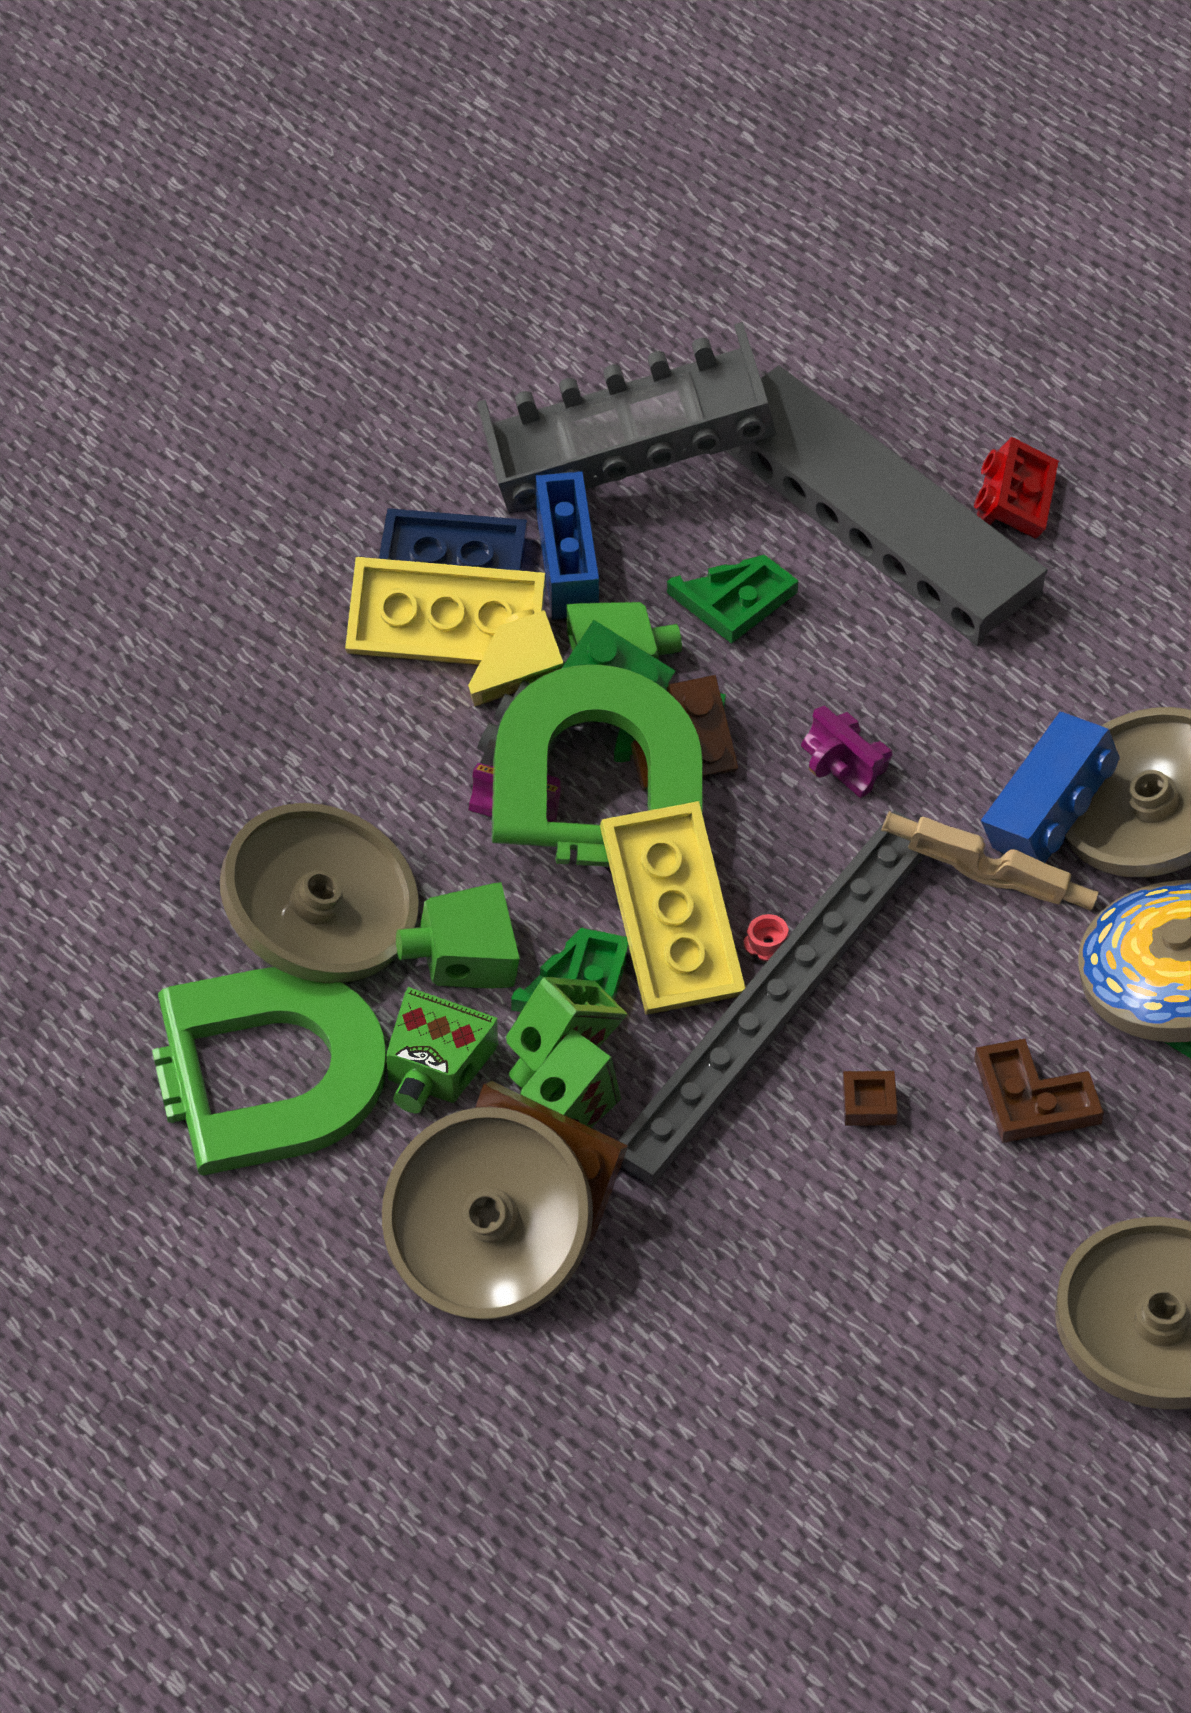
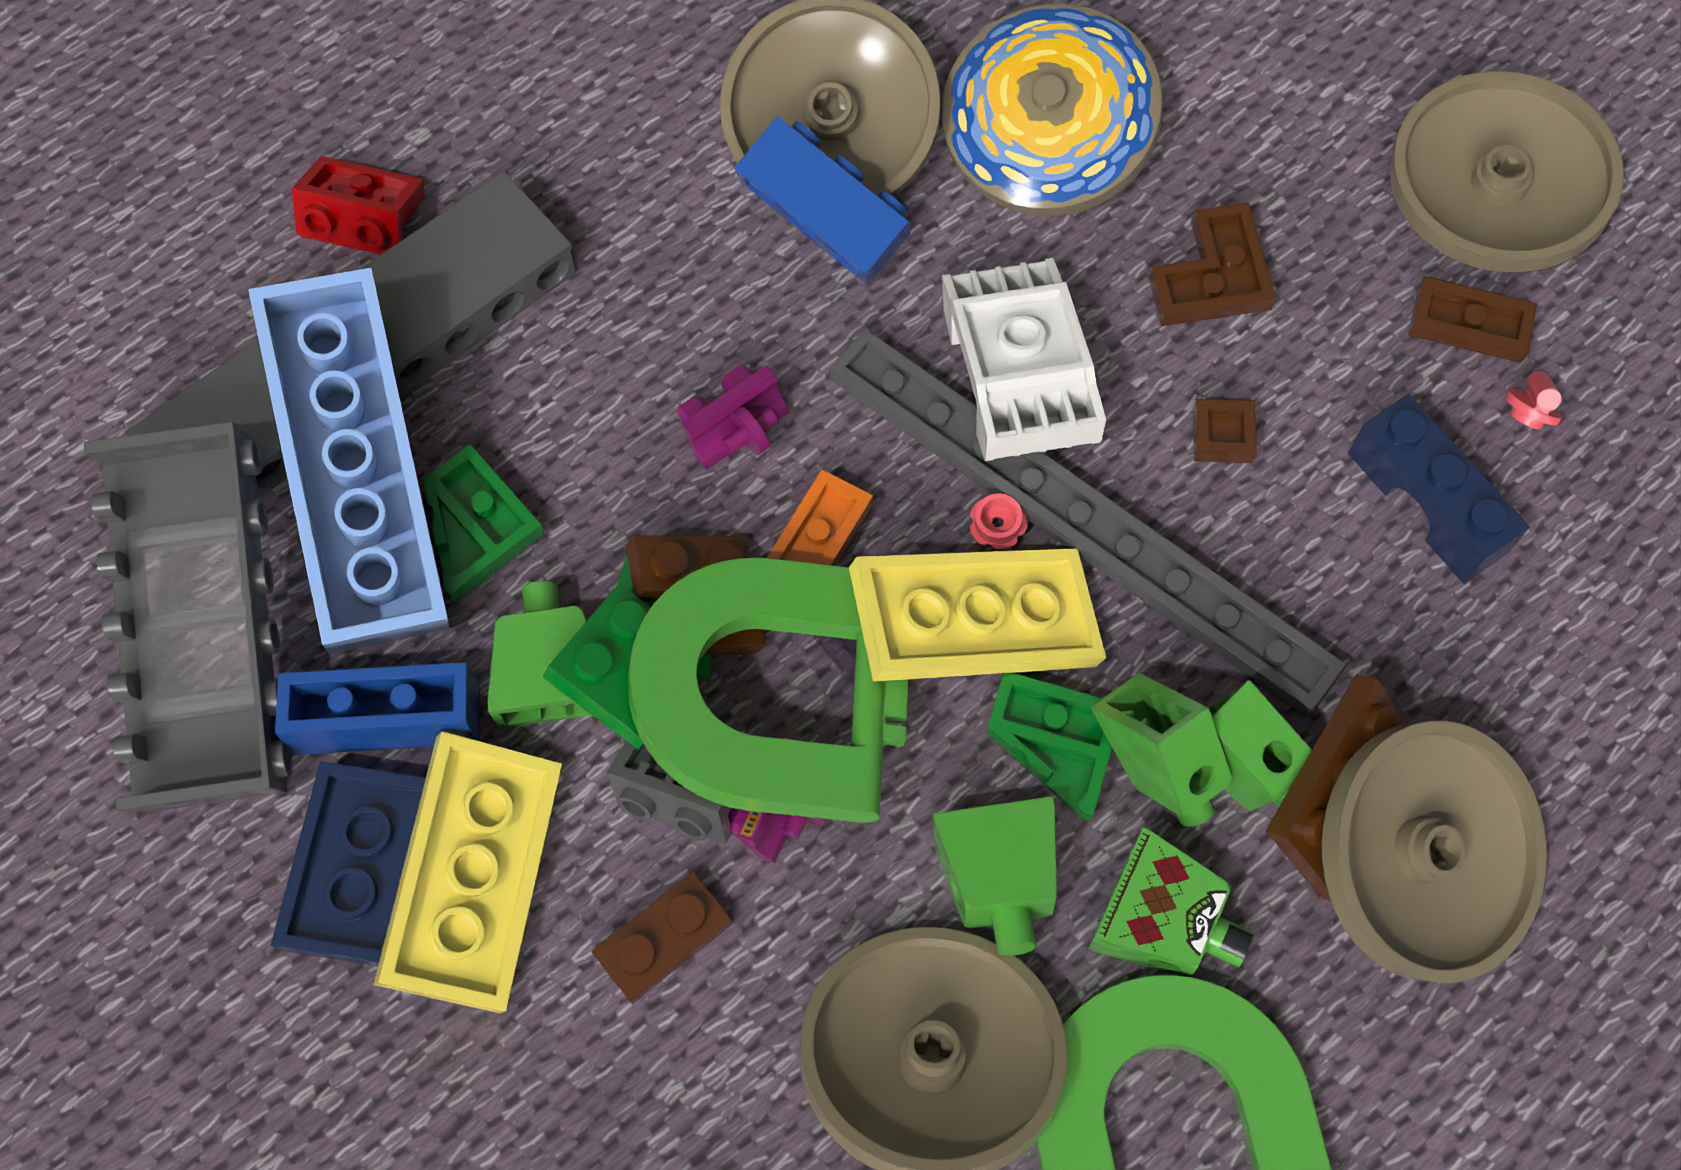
camera: 85 degrees left, 15 degrees up
(405, 741) = (662, 937): none -> reddish brown plate
(517, 652) = (568, 778): light yellow slope -> none
(747, 815) = (823, 522): none -> orange plate
(759, 490) = (348, 460): none -> light blue brick
(793, 1263) = (1465, 513): none -> dark blue arch
(913, 925) = (1024, 359): none -> white plate
(923, 1338) = (1537, 403): none -> coral plate
(967, 855) = (909, 282): tan piece -> none
(1006, 1293) = (1472, 319): none -> reddish brown plate

